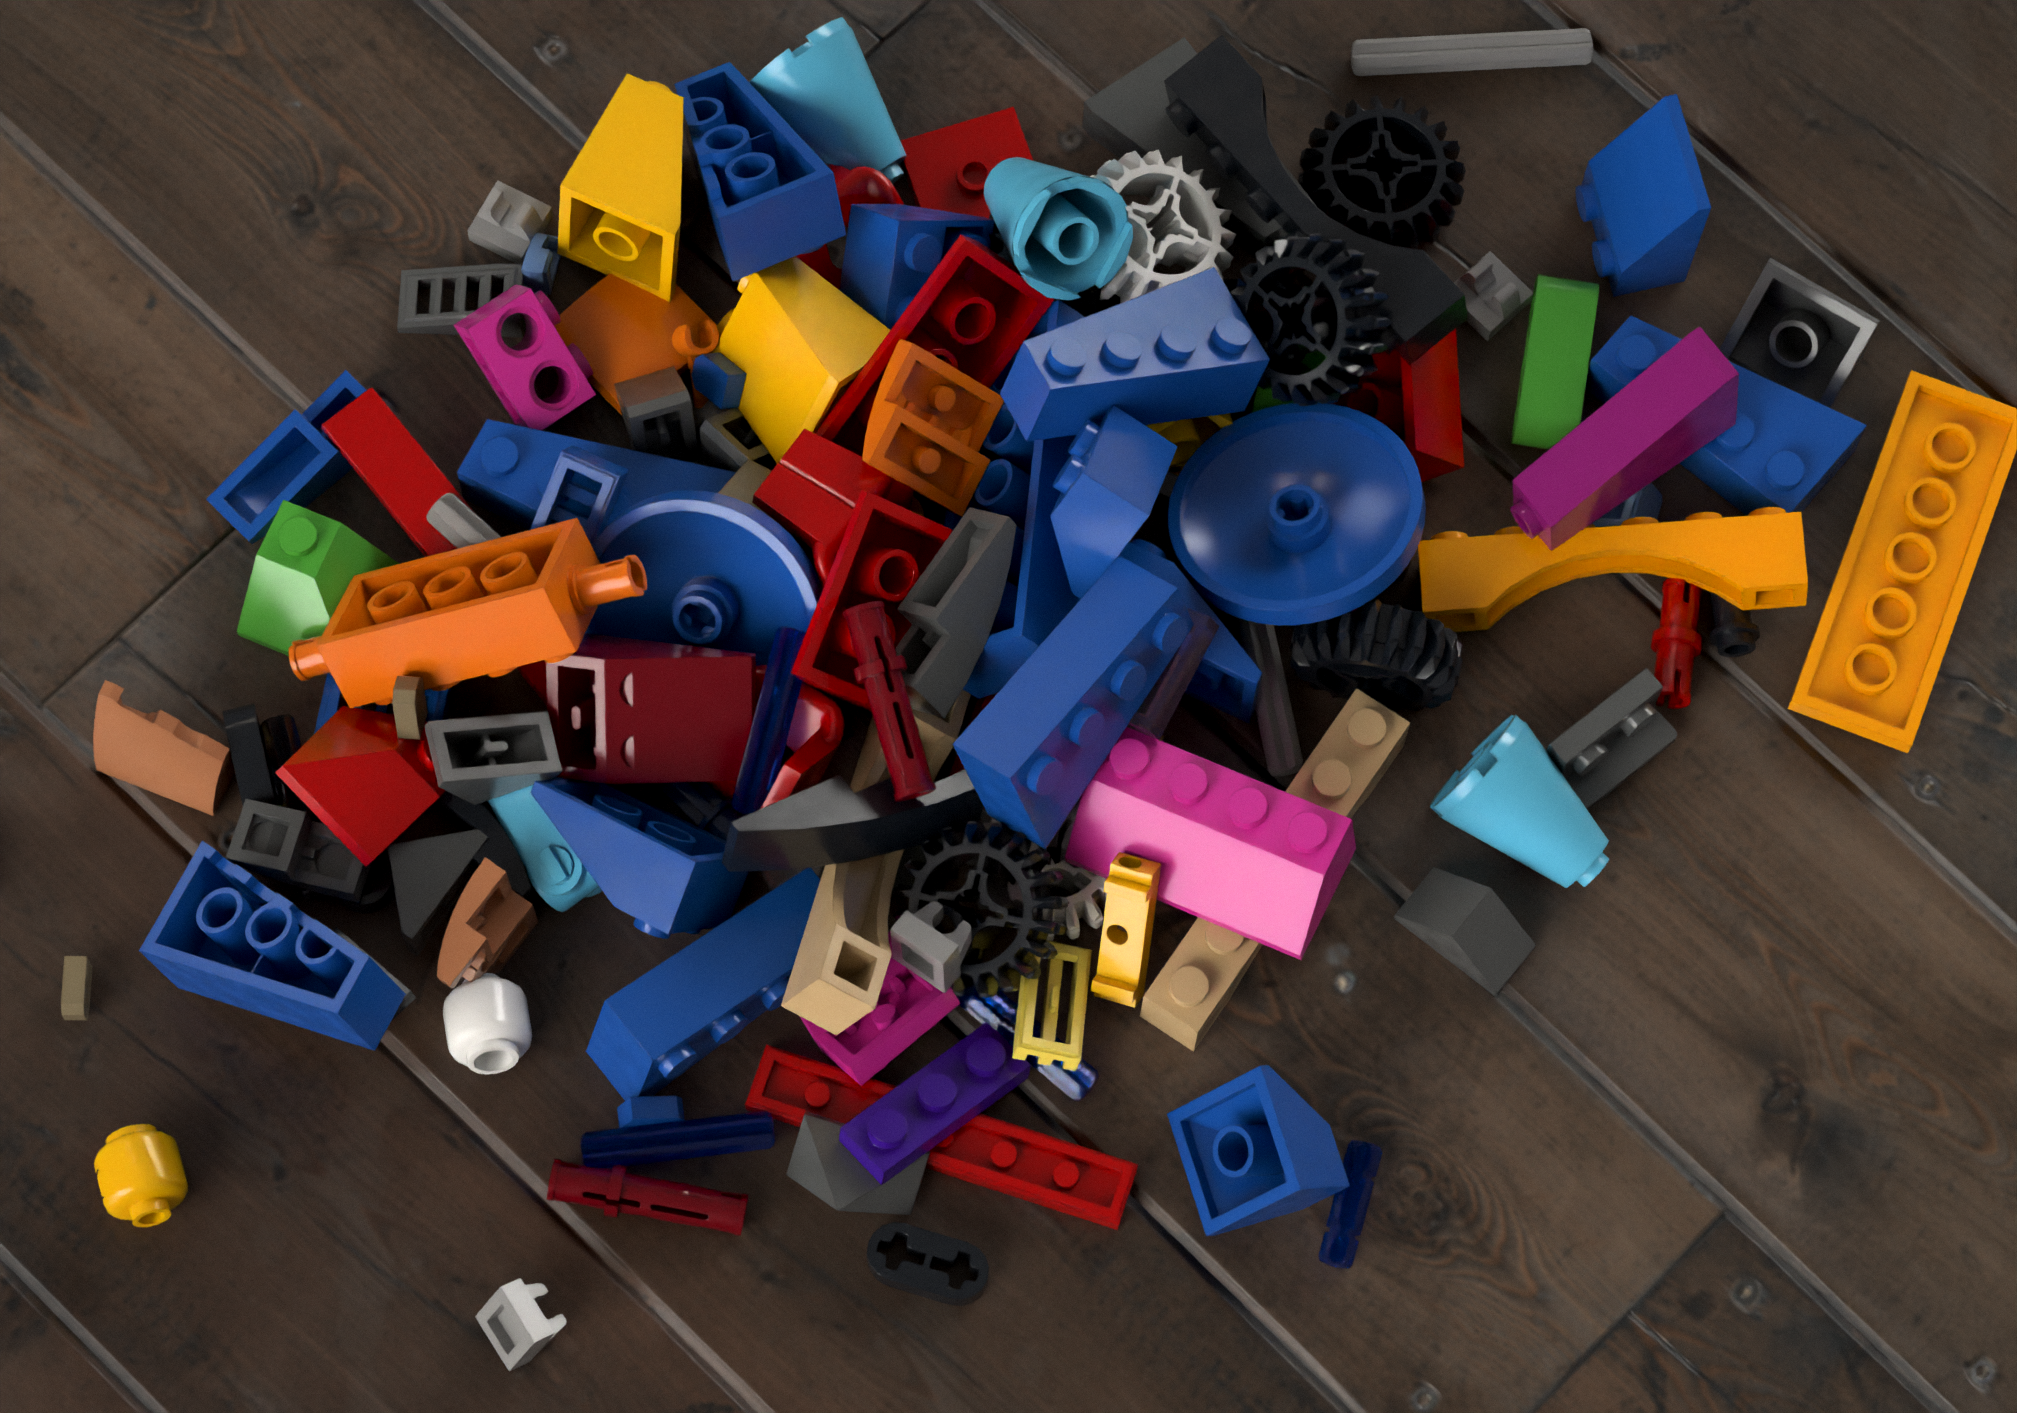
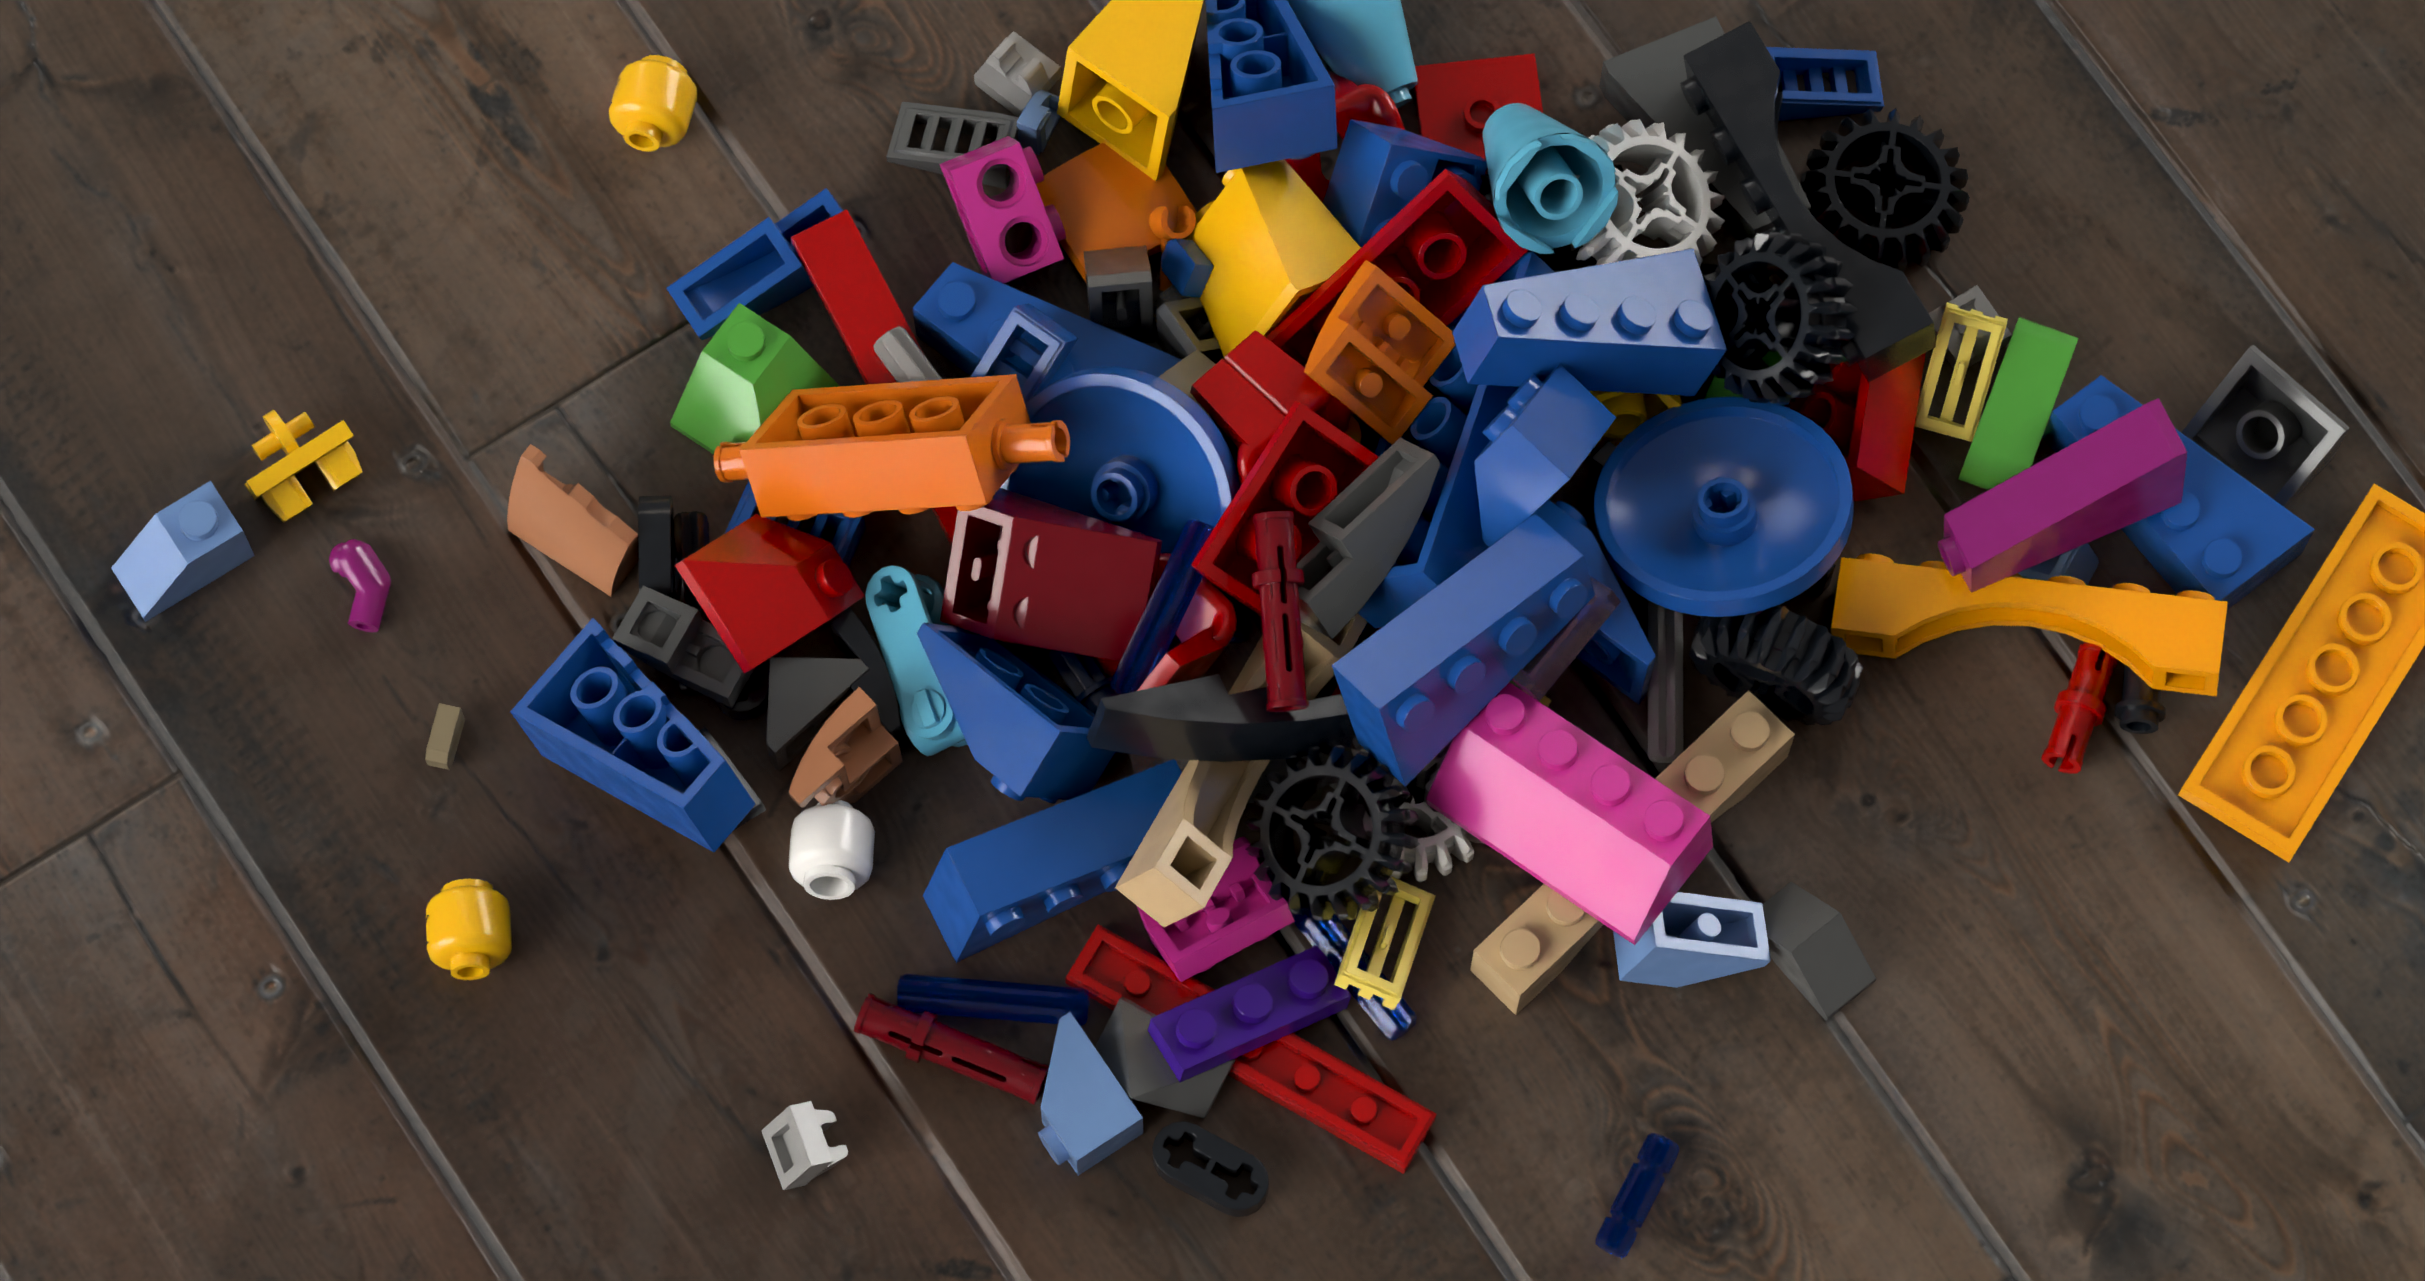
camera: 15 degrees right, 0 degrees up
(154, 317) = (653, 102): none -> yellow head
(409, 706) = (817, 527): dark tan piece -> none
(492, 754) = (887, 588): dark grey slope -> none
(650, 1110) = (971, 965): blue piece -> none
(790, 1224) = (1084, 1103): none -> medium blue slope
(927, 951) = (1267, 861): light grey tile -> none
(1131, 904) = (1481, 858): yellow piece -> none
(1255, 1152) = (1553, 1125): blue slope -> none
(1298, 103) = (1816, 102): none -> blue slope
(1356, 945) = (1696, 942): none -> medium blue slope
(1471, 52) = (2002, 84): light grey axle -> none
(1496, 286) = (1973, 321): none -> light yellow tile
(1524, 807) = (1892, 840): medium azure cone -> none
(1613, 740) = (1991, 793): dark grey bracket -> none
(1645, 202) = (2139, 266): blue slope -> none

